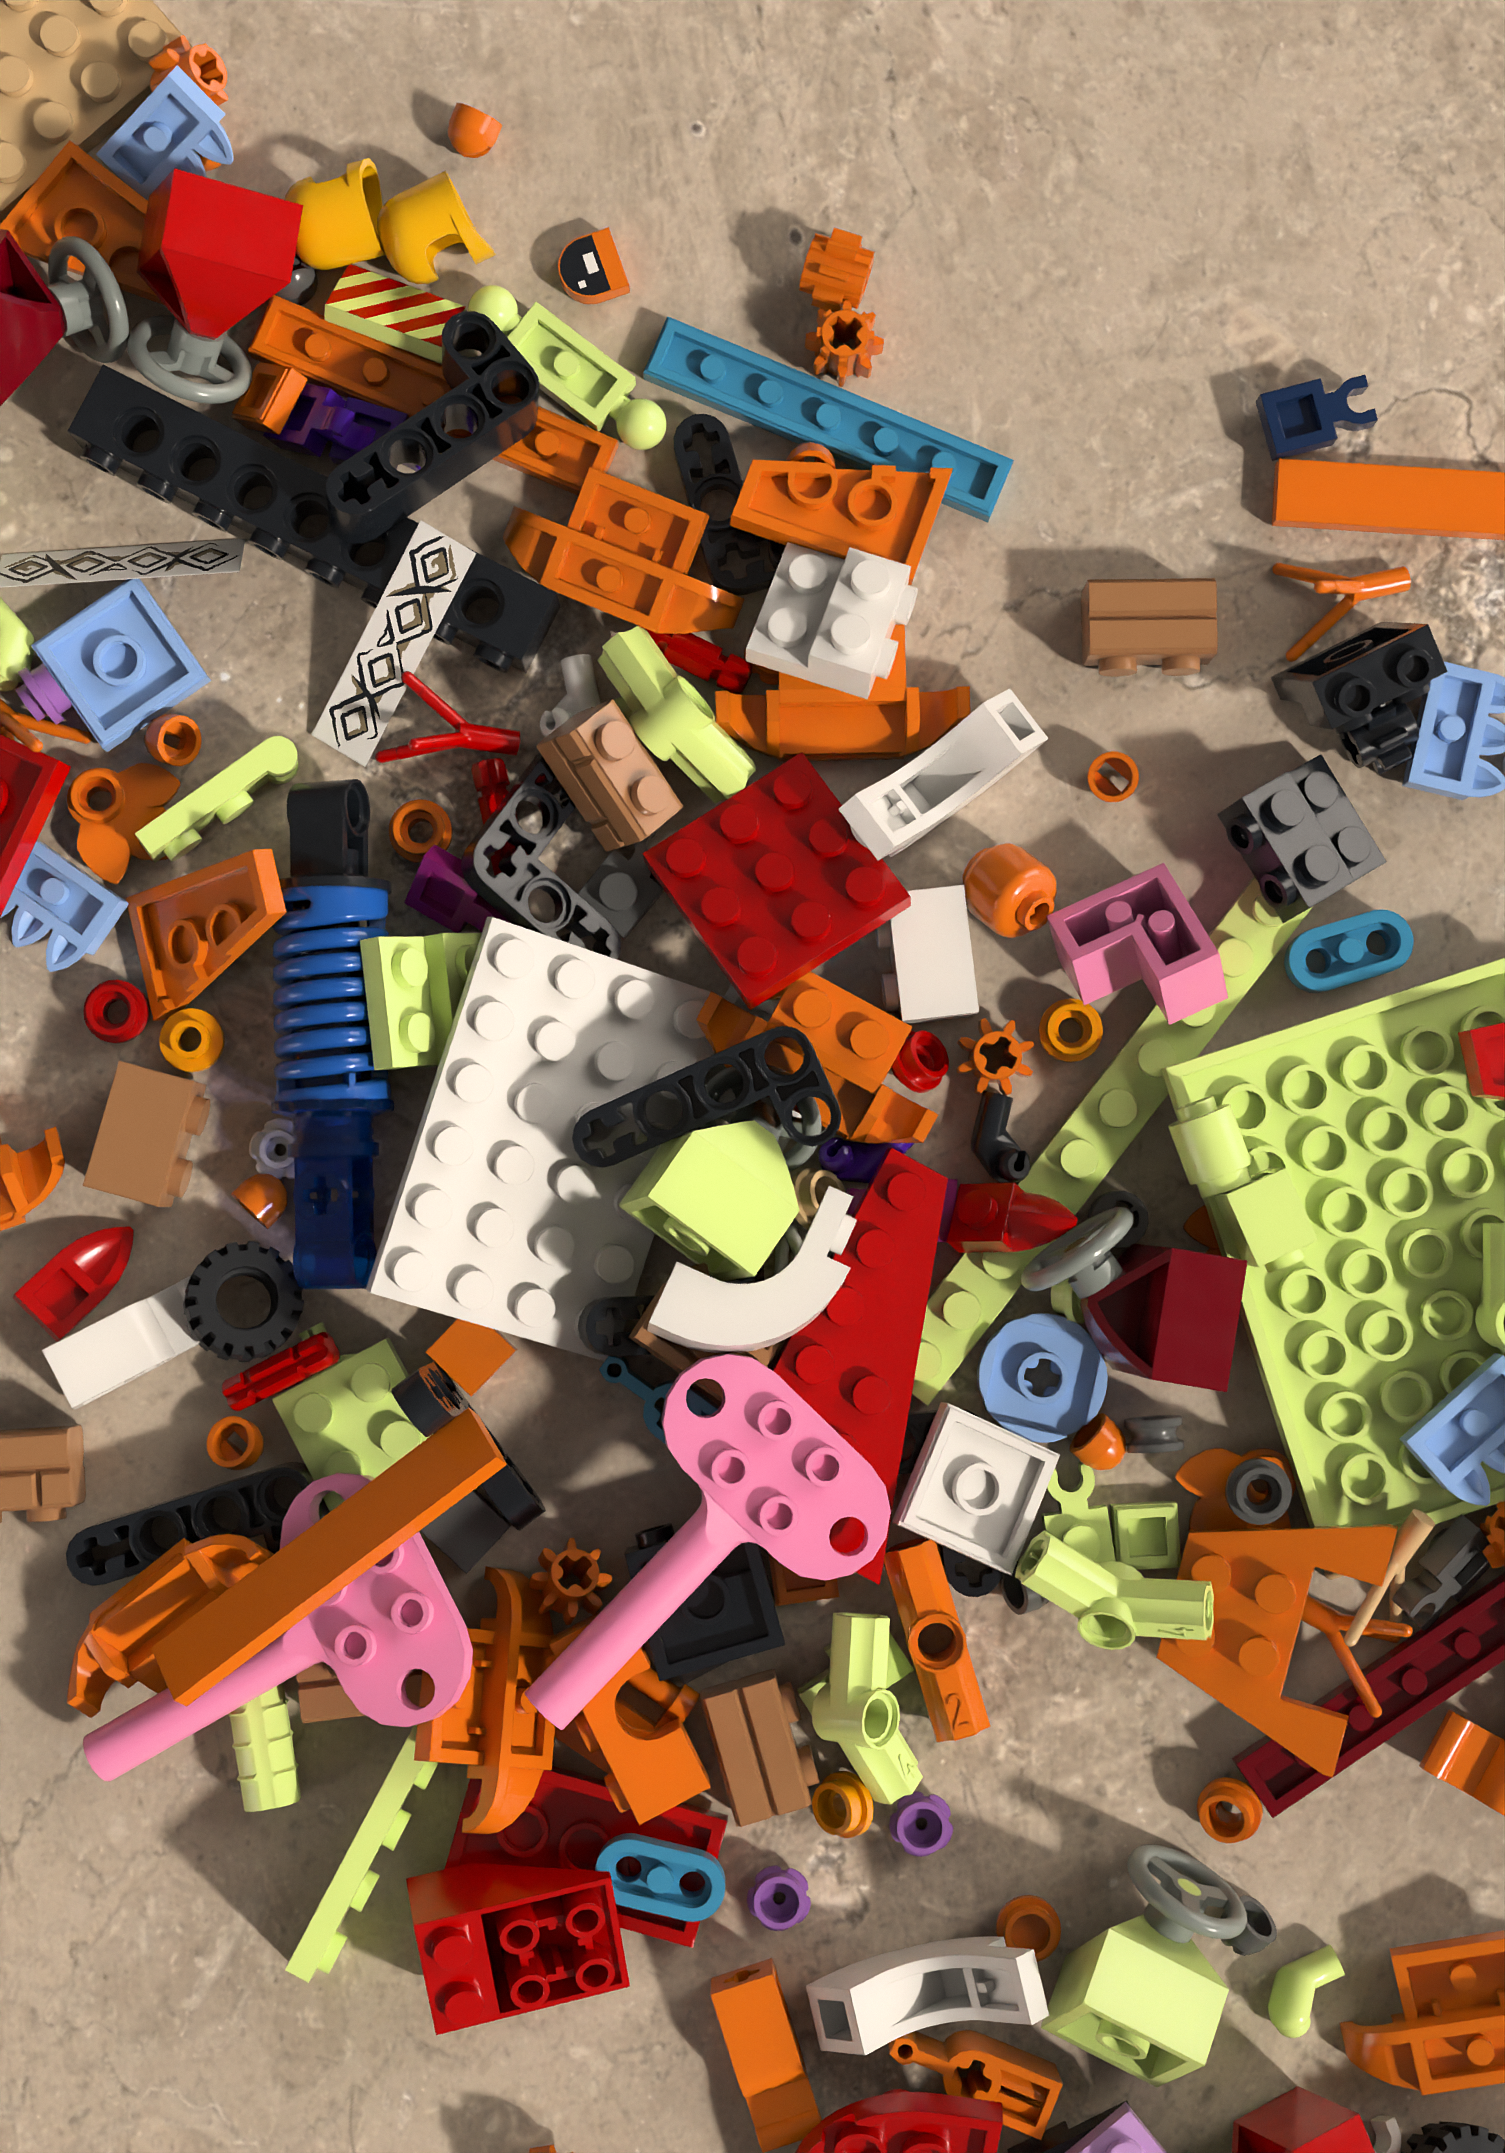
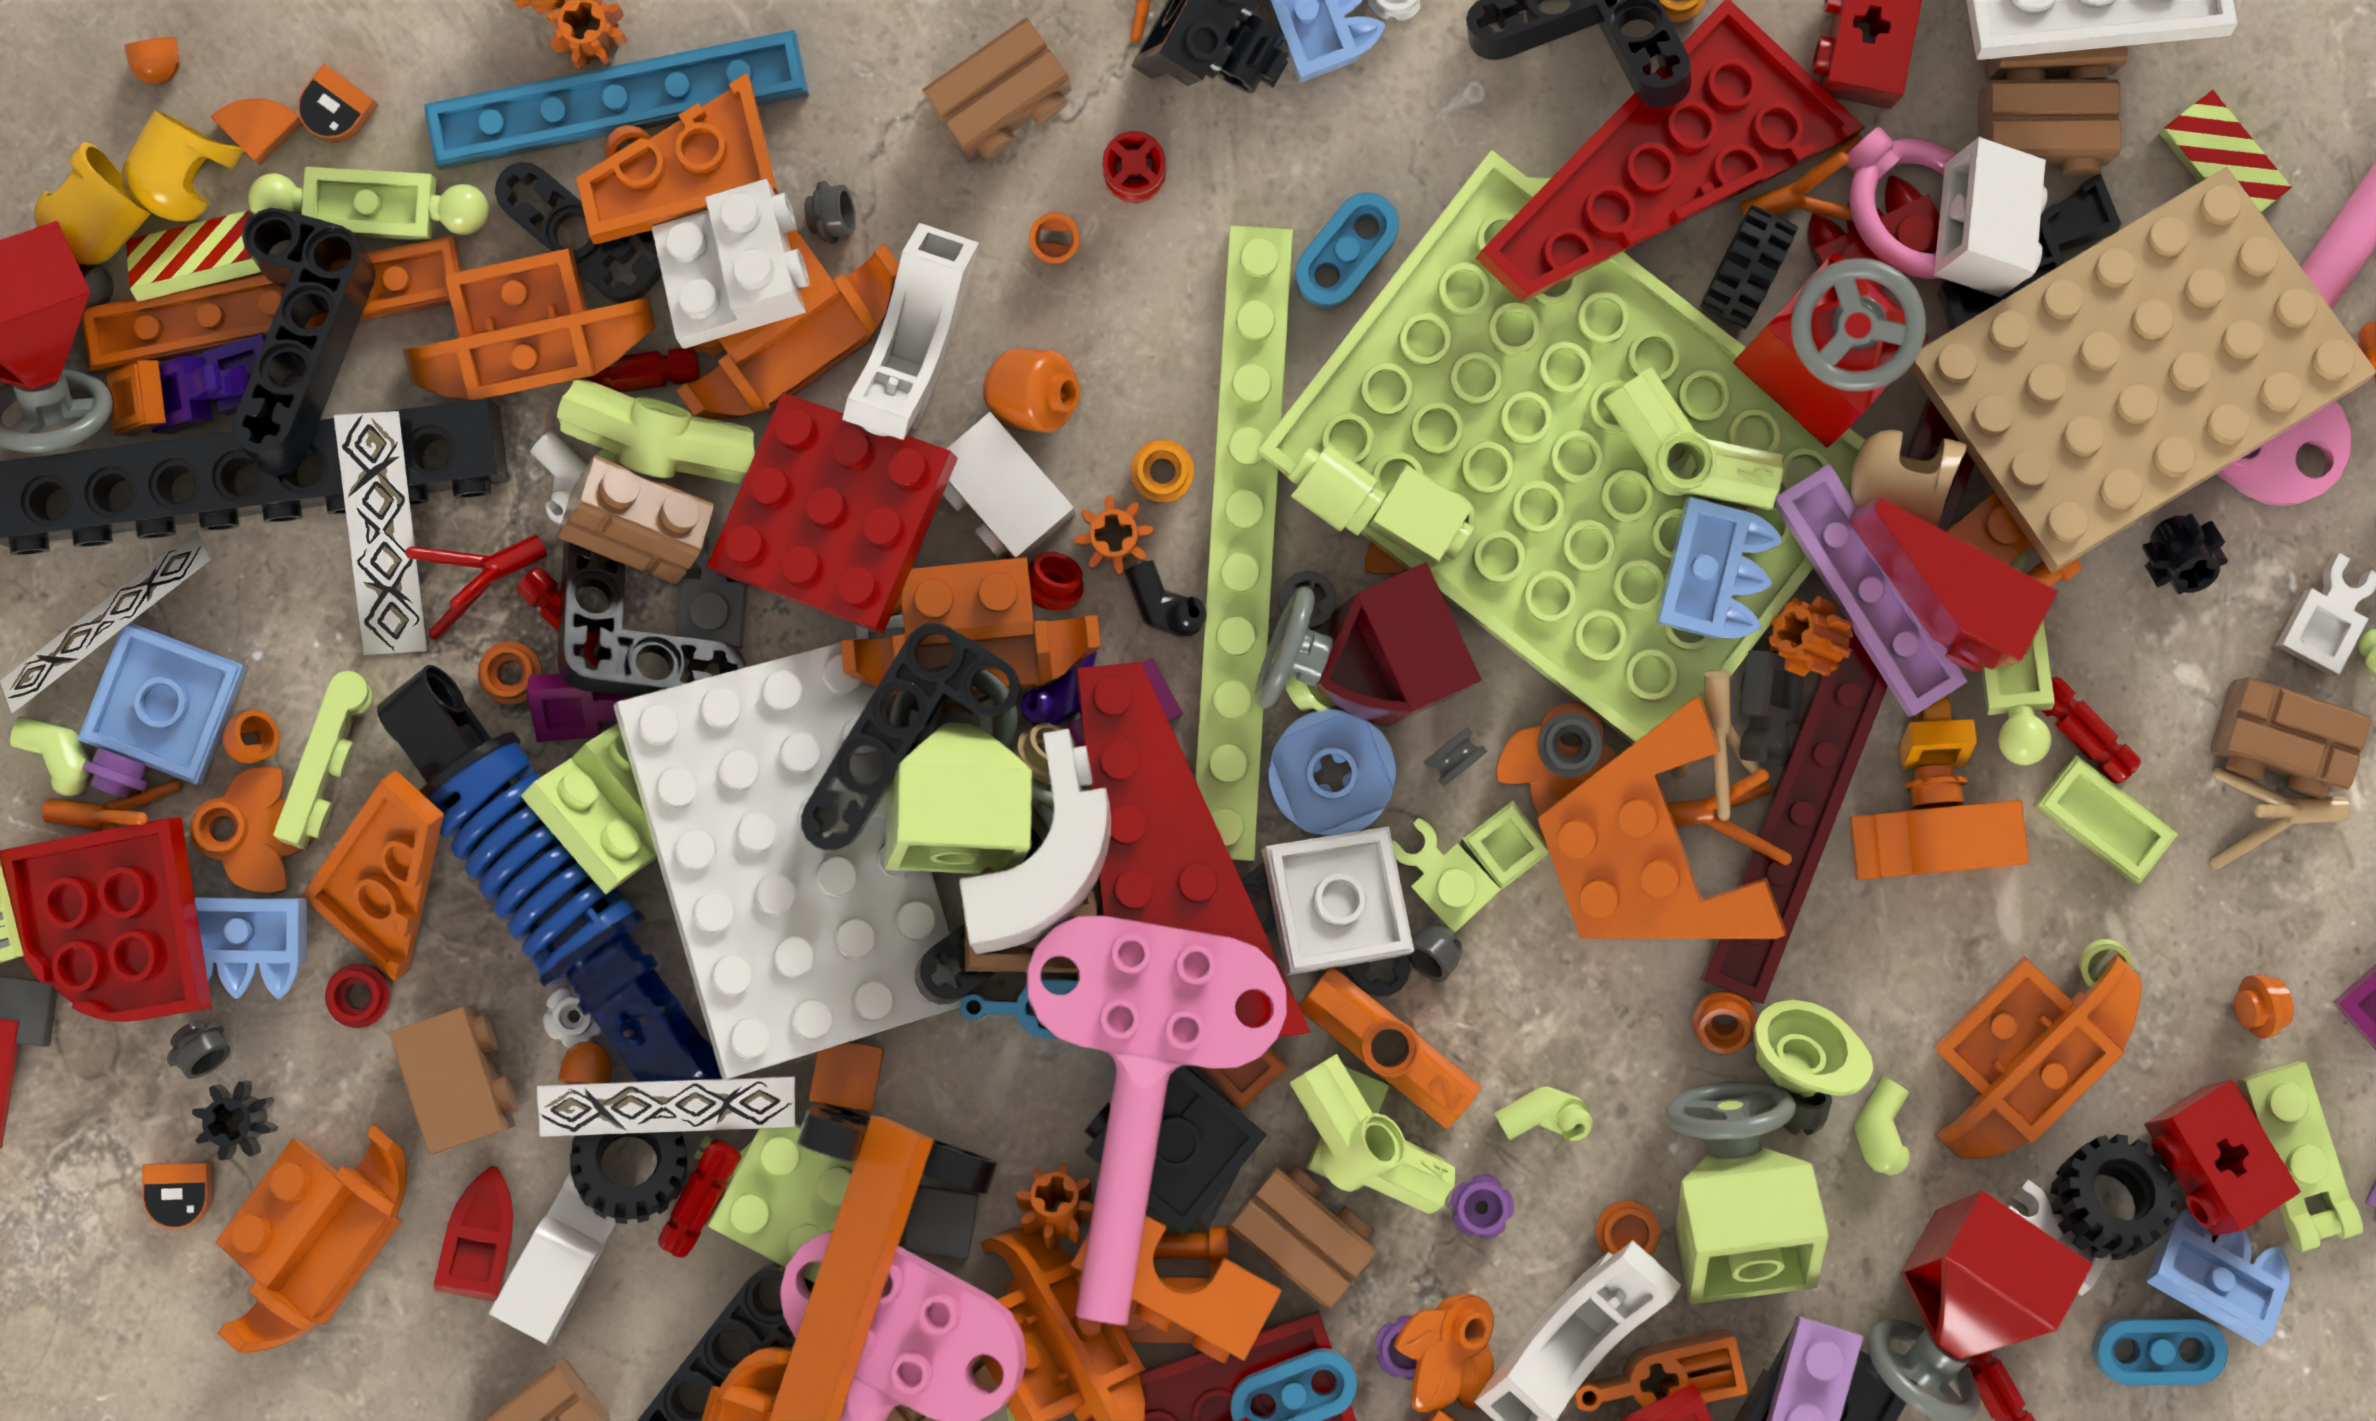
camera: 30 degrees left, 0 degrees up
(211, 1040) = (457, 976): light orange plate -> none
(225, 1452) = (702, 1297): orange hinge -> none
(304, 1279) = (666, 1106): none -> white sticker
(520, 242) = (257, 125): none -> orange tile
(813, 1928) = (1449, 1352): none -> orange plate
(843, 1805) = (1406, 1235): light orange plate -> none
(941, 630) = (830, 212): none -> dark grey plate
(1005, 1219) = (1211, 663): red plate -> none
(1033, 1782) = (1548, 1109): none -> yellowish green arm
(1099, 1443) = (1417, 795): orange hinge -> none
(1114, 1597) = (1511, 911): yellowish green piece -> none
(1140, 933) = (1160, 355): bright pink brick -> none
(1230, 757) = (1133, 149): none -> red wheel
(1287, 1886) = (1810, 1050): none -> yellowish green piece
(1301, 838) = (1243, 183): plate -> none

